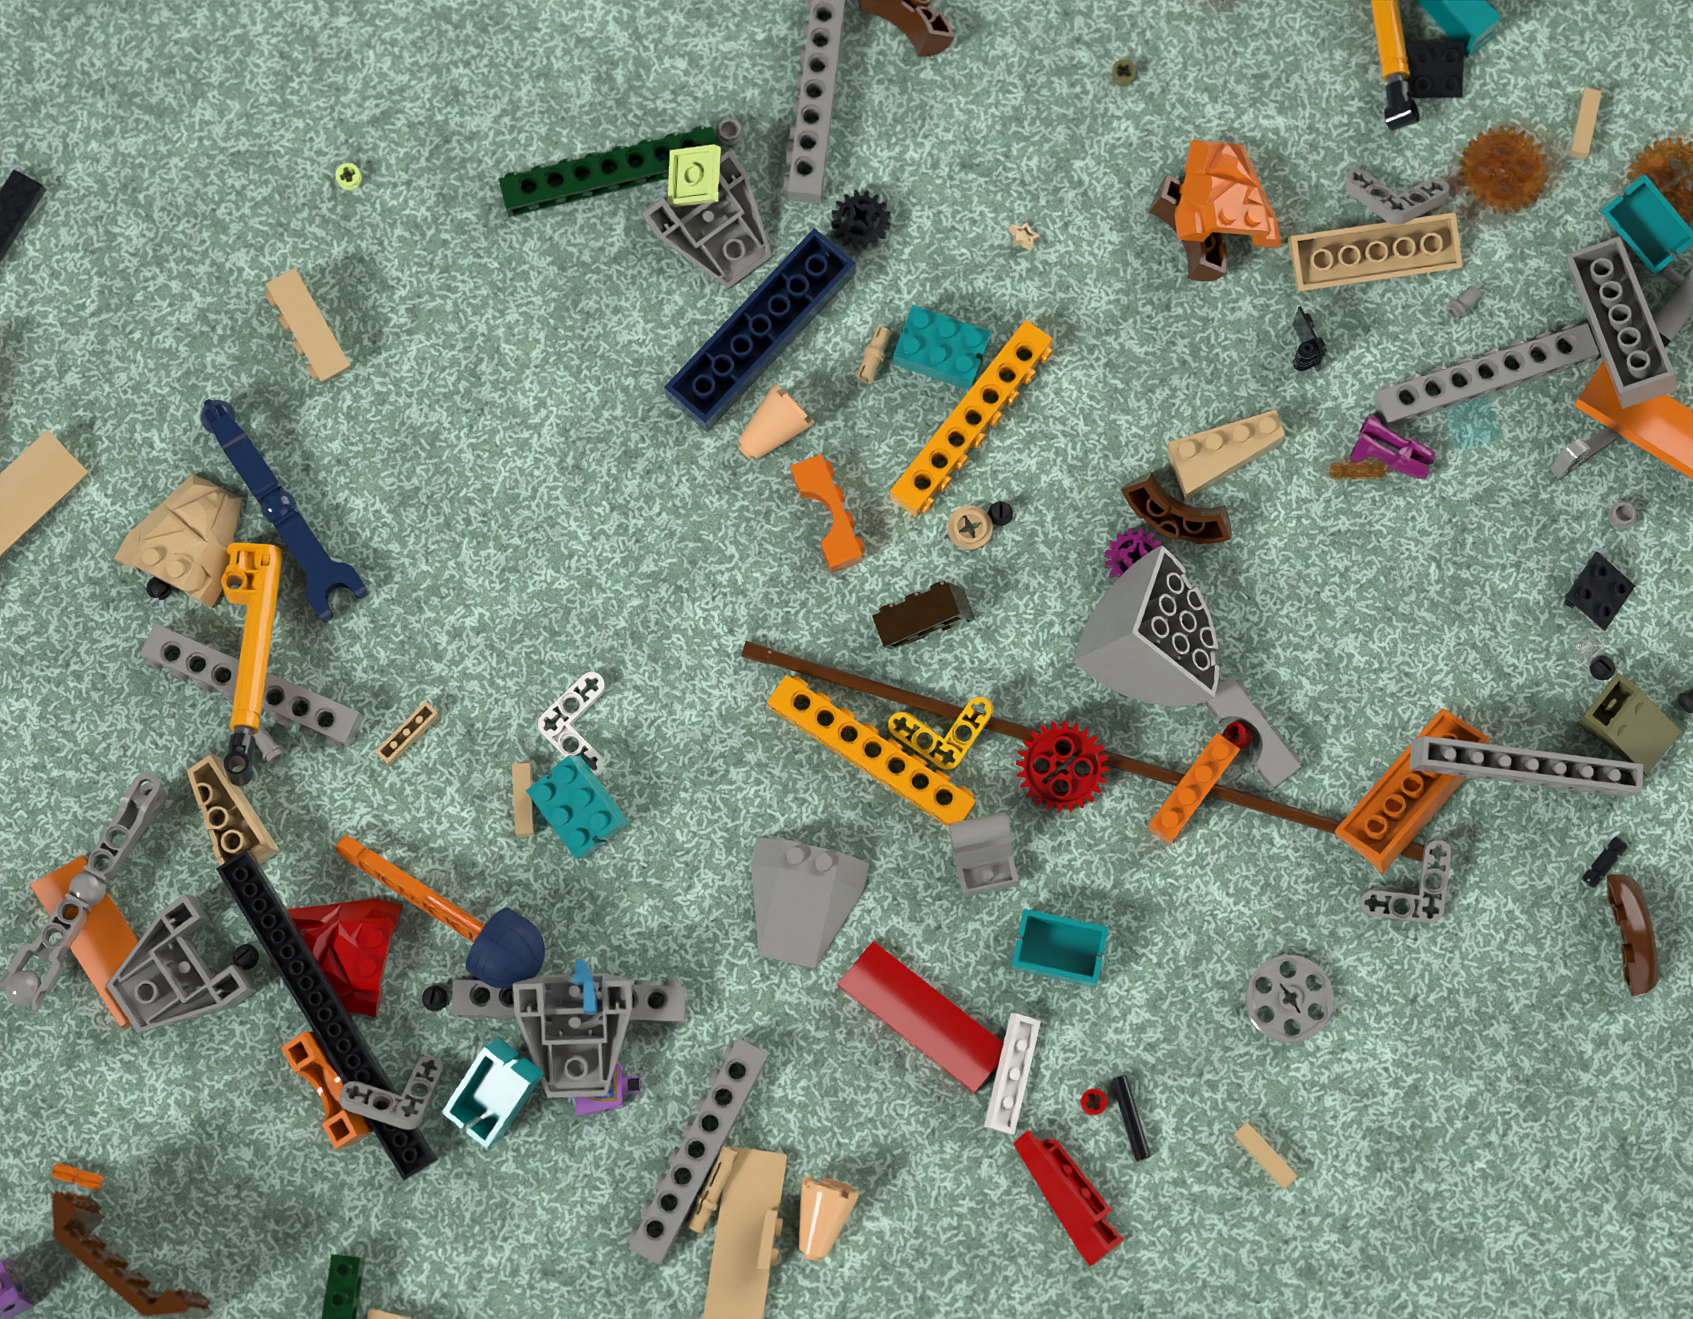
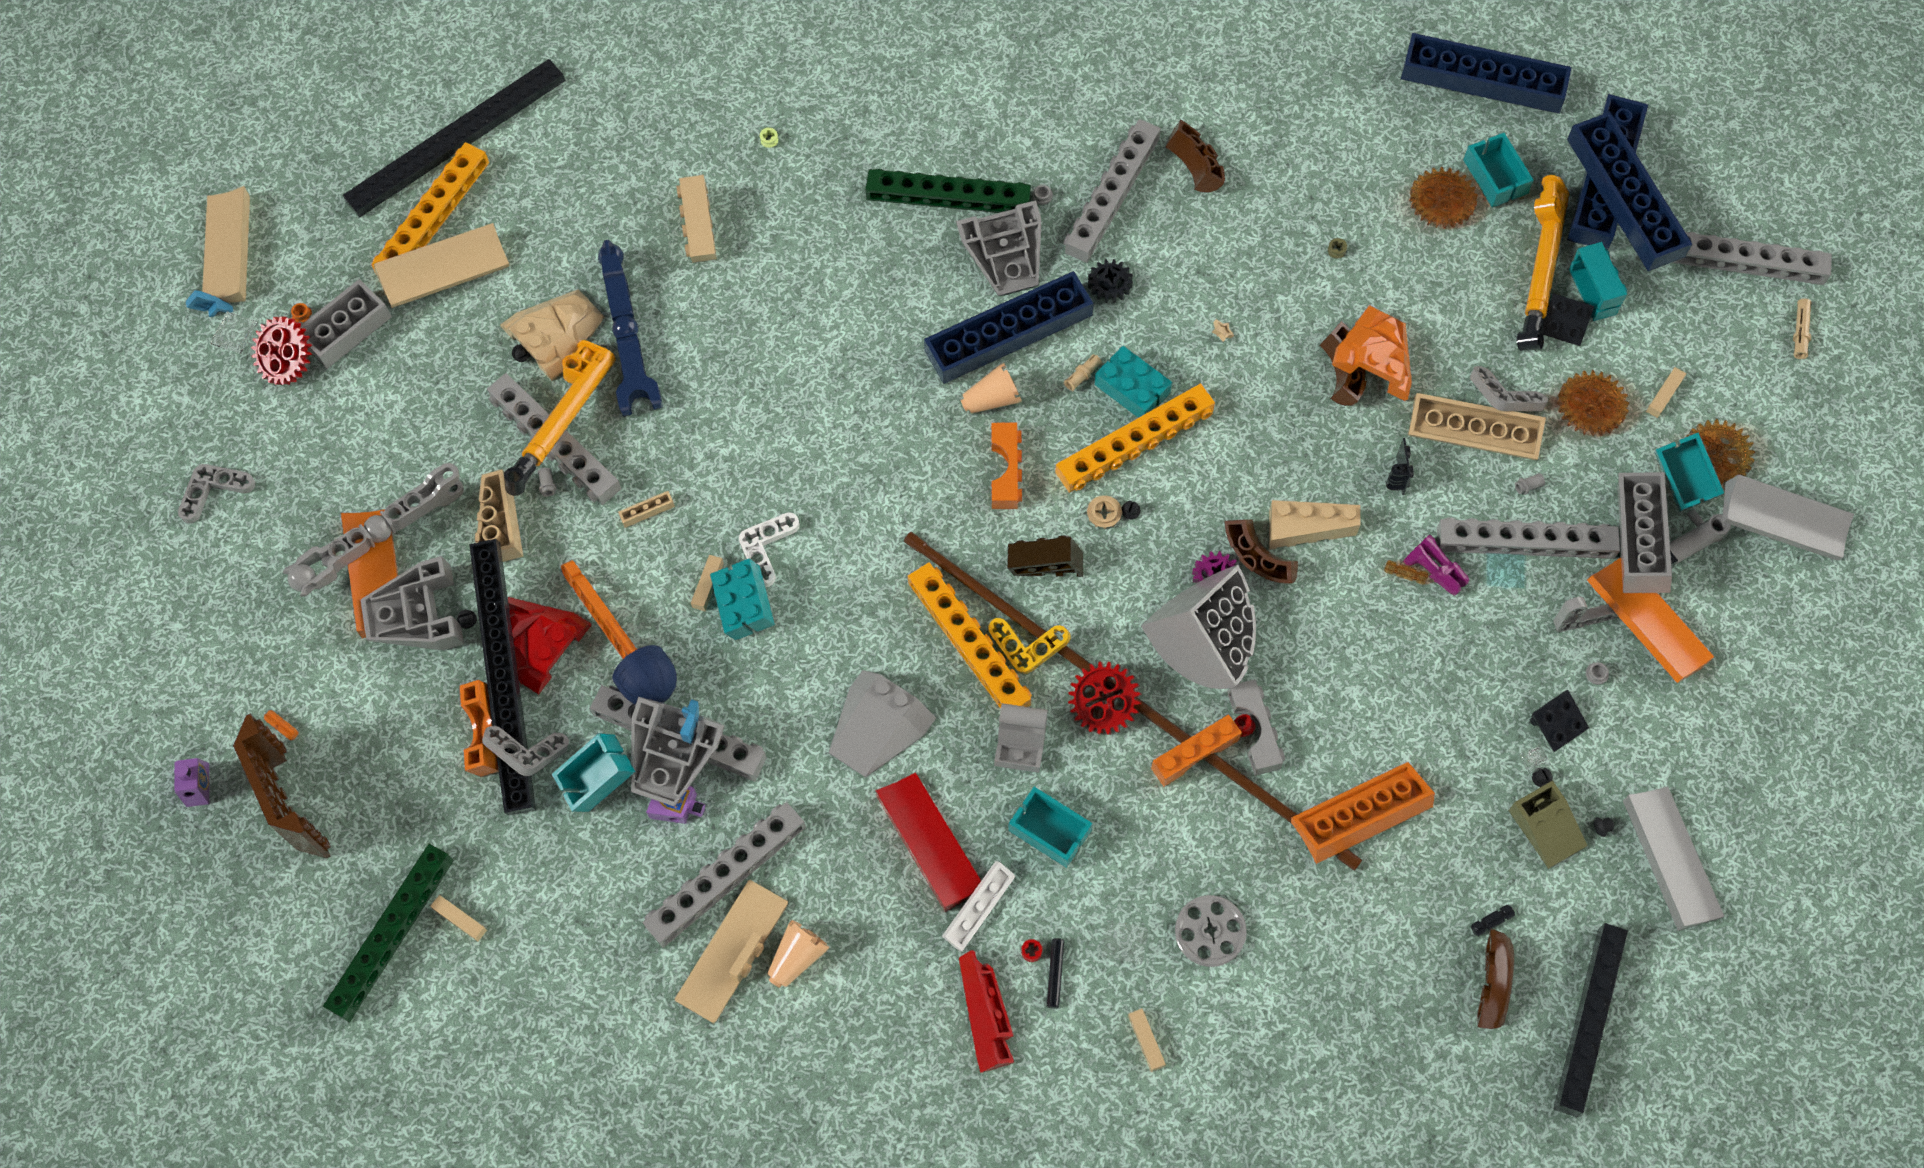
camera: 20 degrees right, 10 degrees down
(434, 998) = (584, 696): black piece -> none
(694, 175) = (1003, 208): yellowish green hinge -> none
(707, 1200) = (718, 909): tan pin -> none
(1416, 901) = (1334, 894): light grey beam -> none
(1526, 766) = (1456, 823): light grey brick -> none

